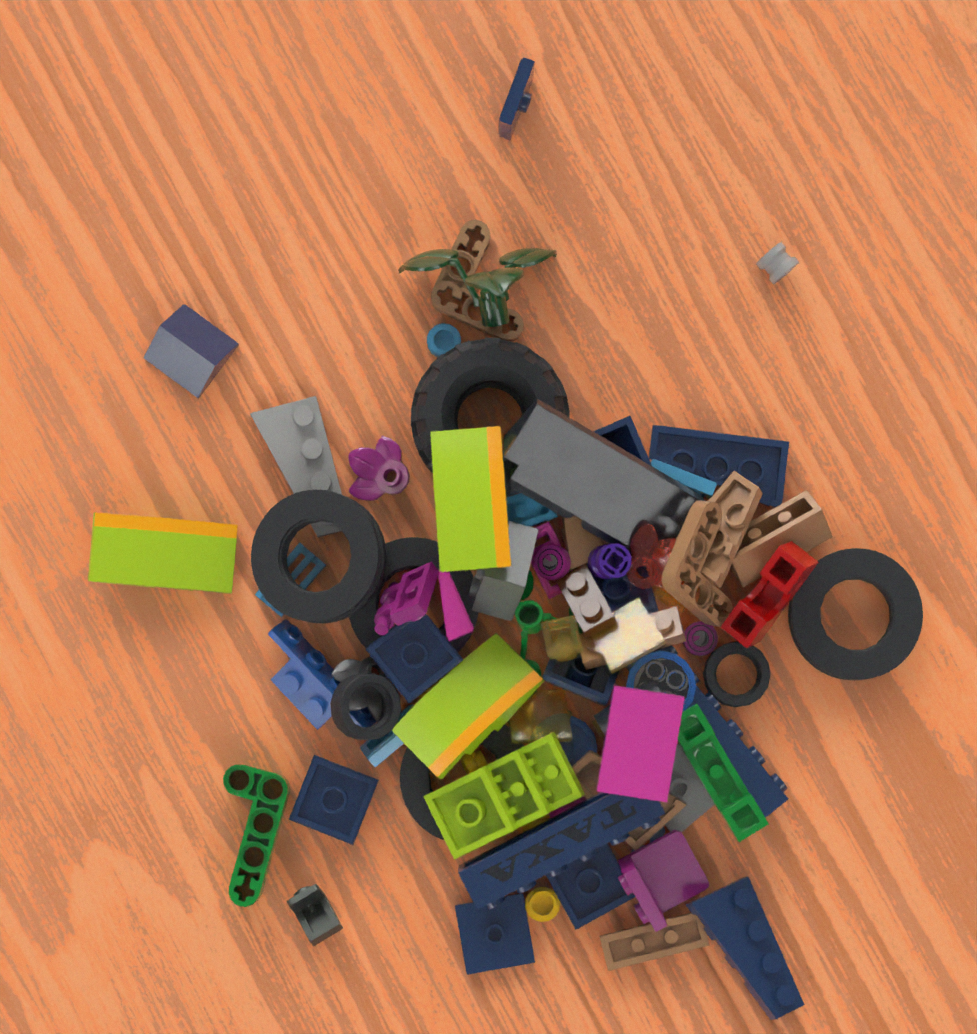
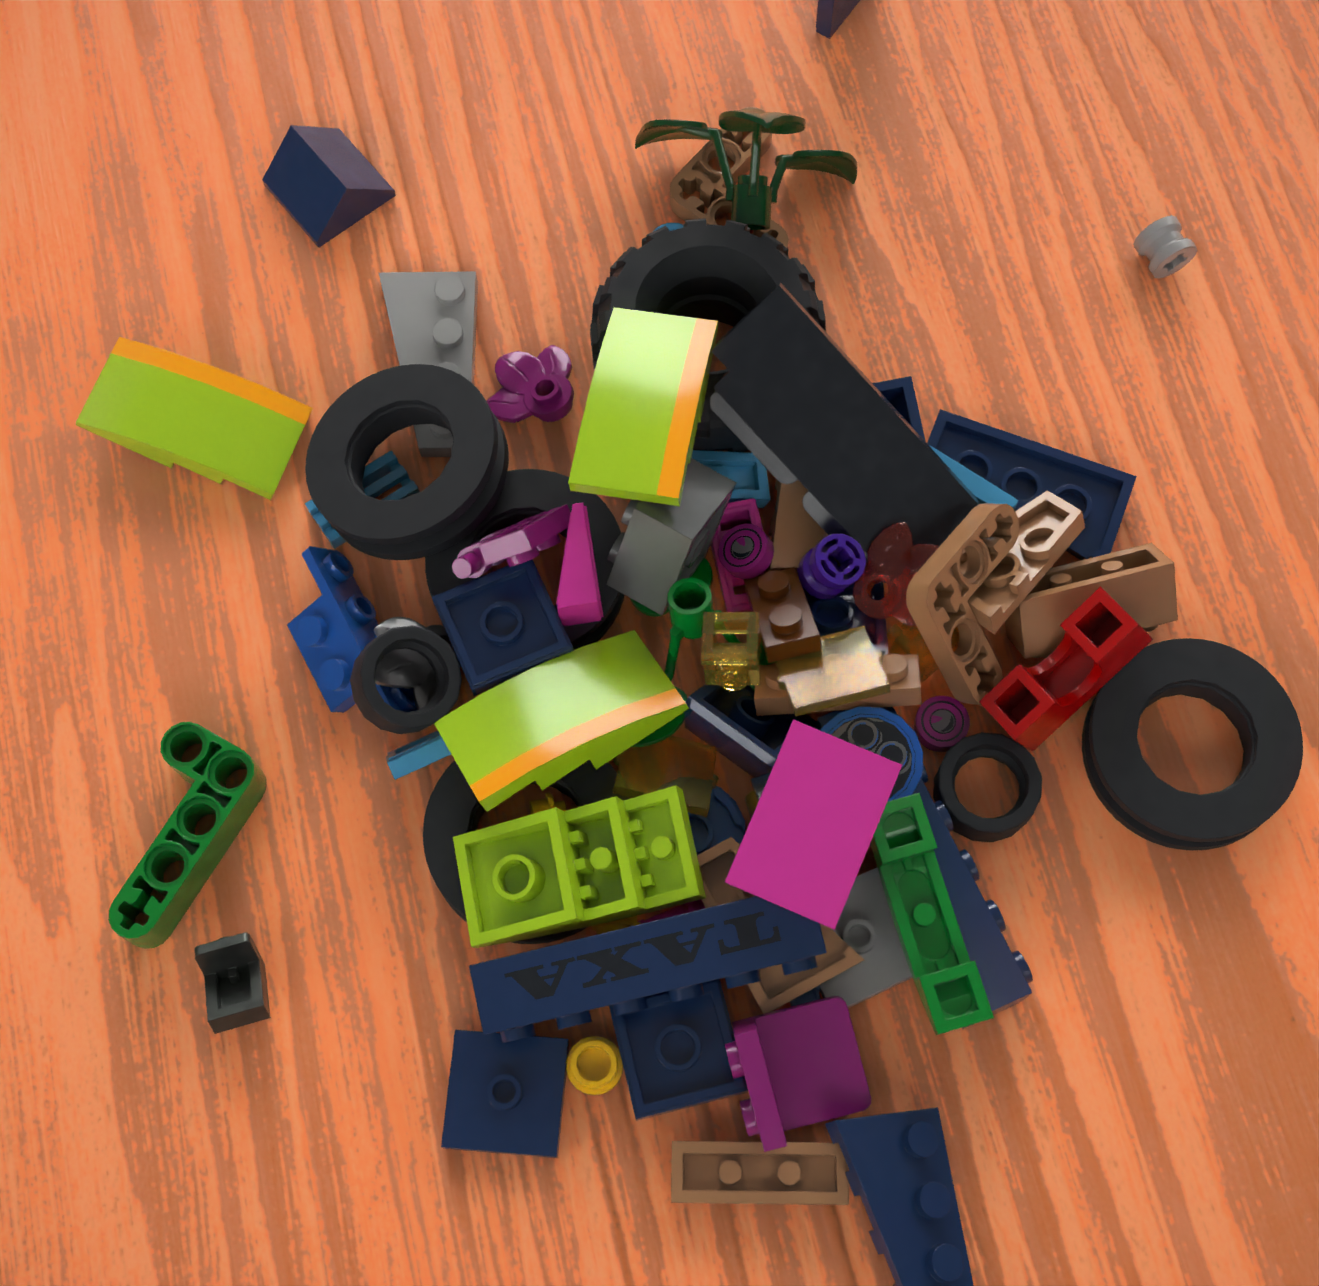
camera: 20 degrees right, 15 degrees down
(333, 799) = (321, 819): dark blue plate -> none

